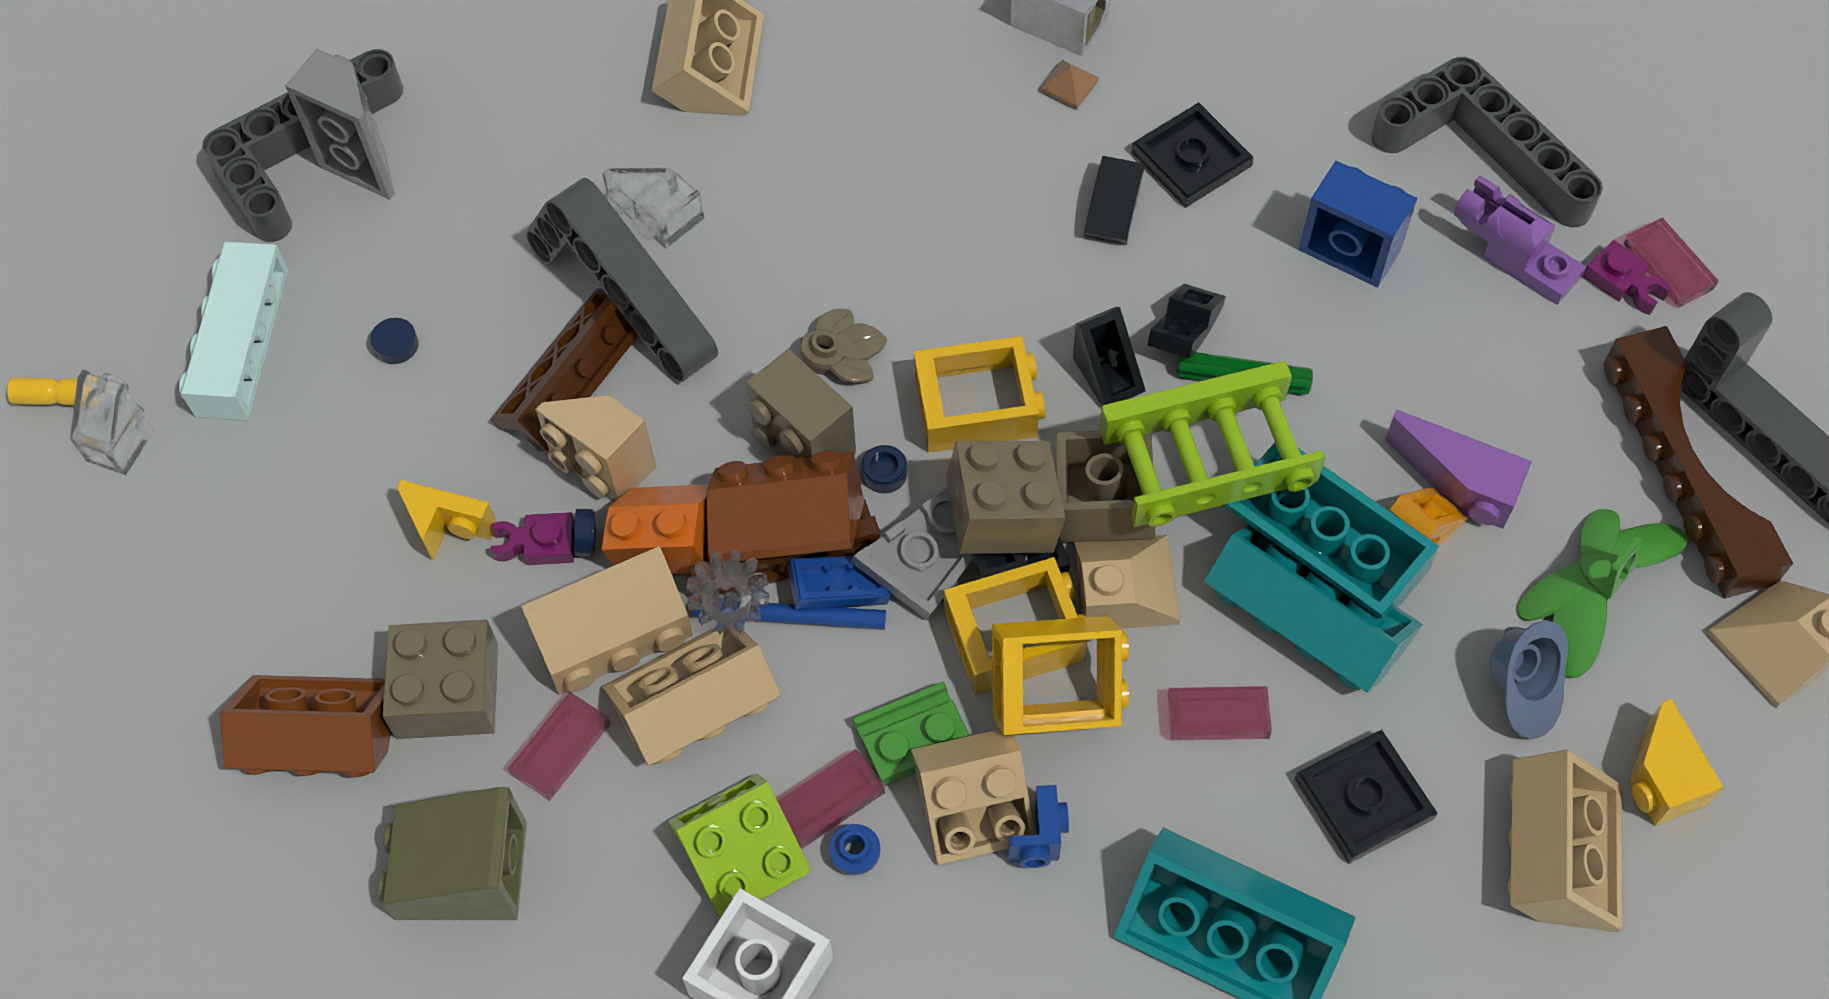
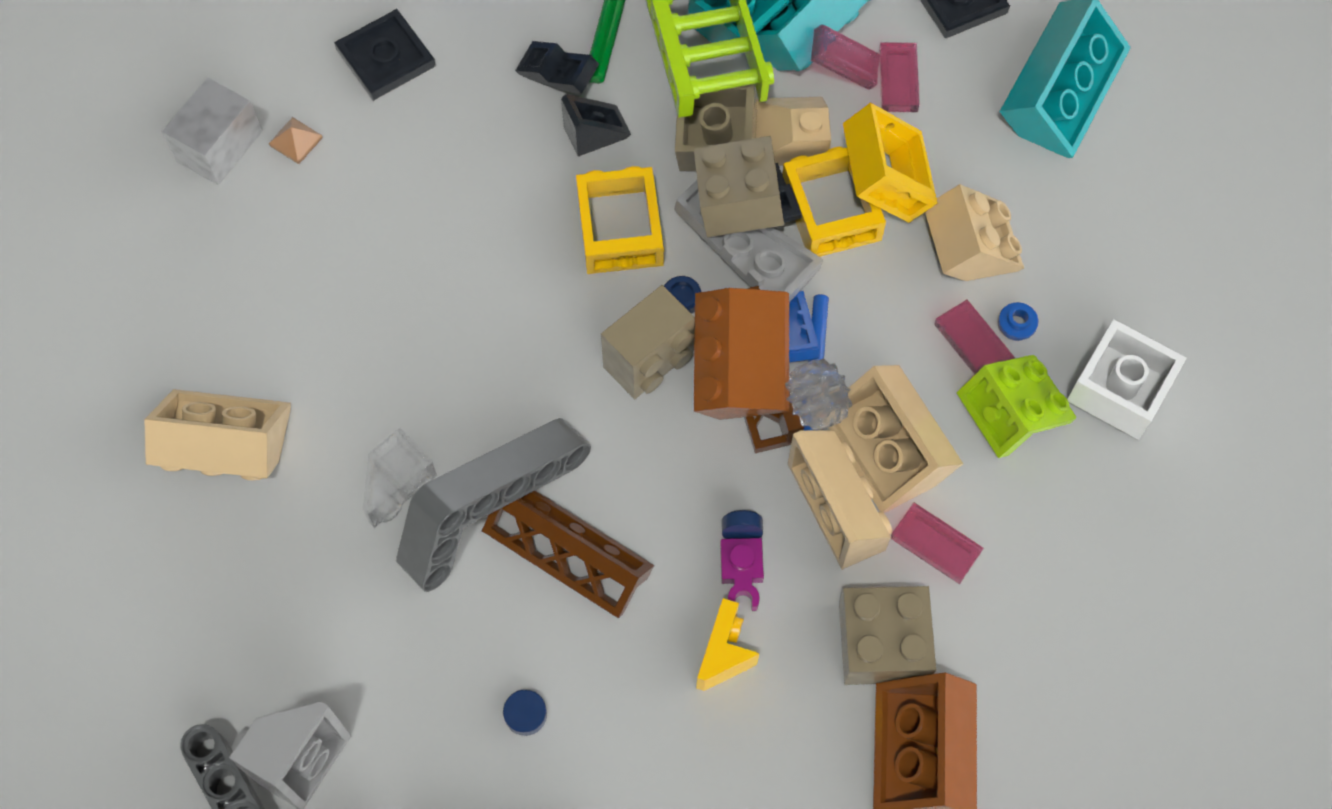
camera: 90 degrees left, 5 degrees up
(455, 858) = (1051, 608): olive slope -> none
(598, 443) = (671, 503): tan slope -> none
(659, 517) = (739, 456): orange slope -> none
(842, 346) = (560, 324): dark tan plate -> none
(908, 724) = (919, 281): bright green plate -> none
(1051, 821) = (1003, 187): blue bracket -> none
(1114, 200) = (425, 107): black slope -> none
(1230, 636) = (845, 57): none -> clear pink tile

